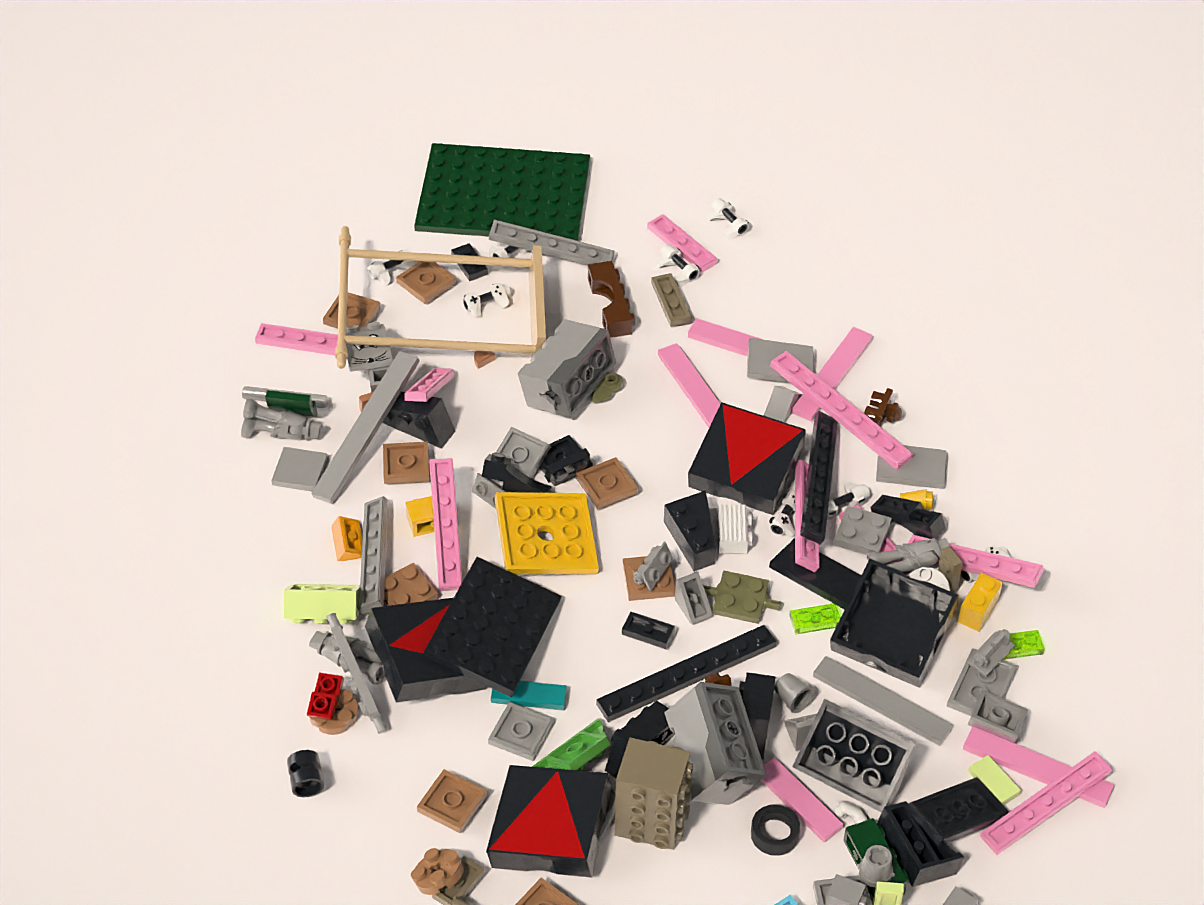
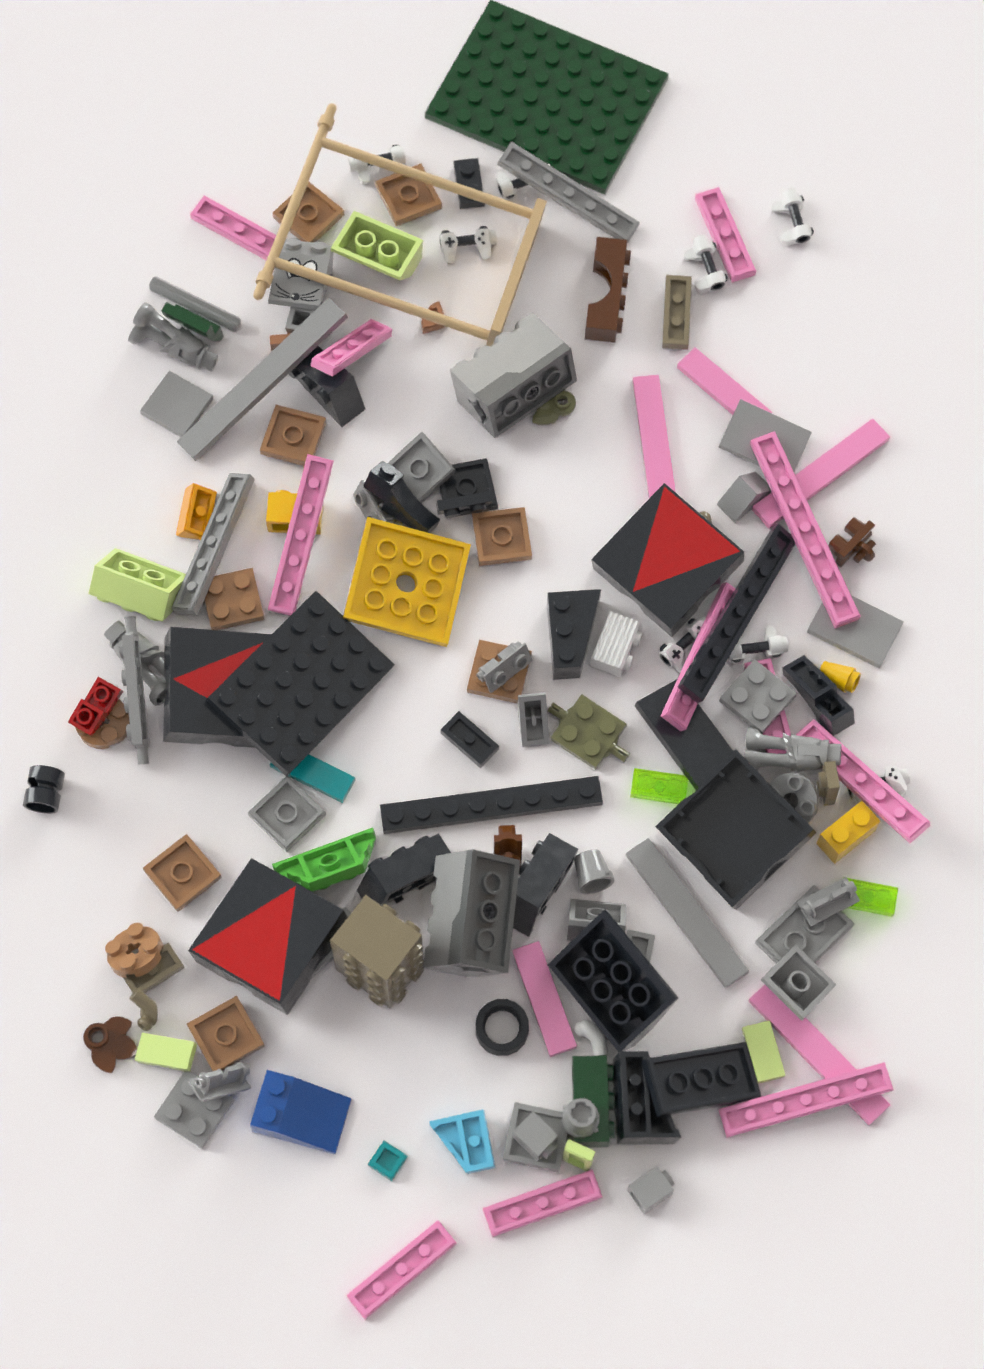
camera: 20 degrees right, 20 degrees up
(420, 314) = (379, 246): none -> yellowish green slope

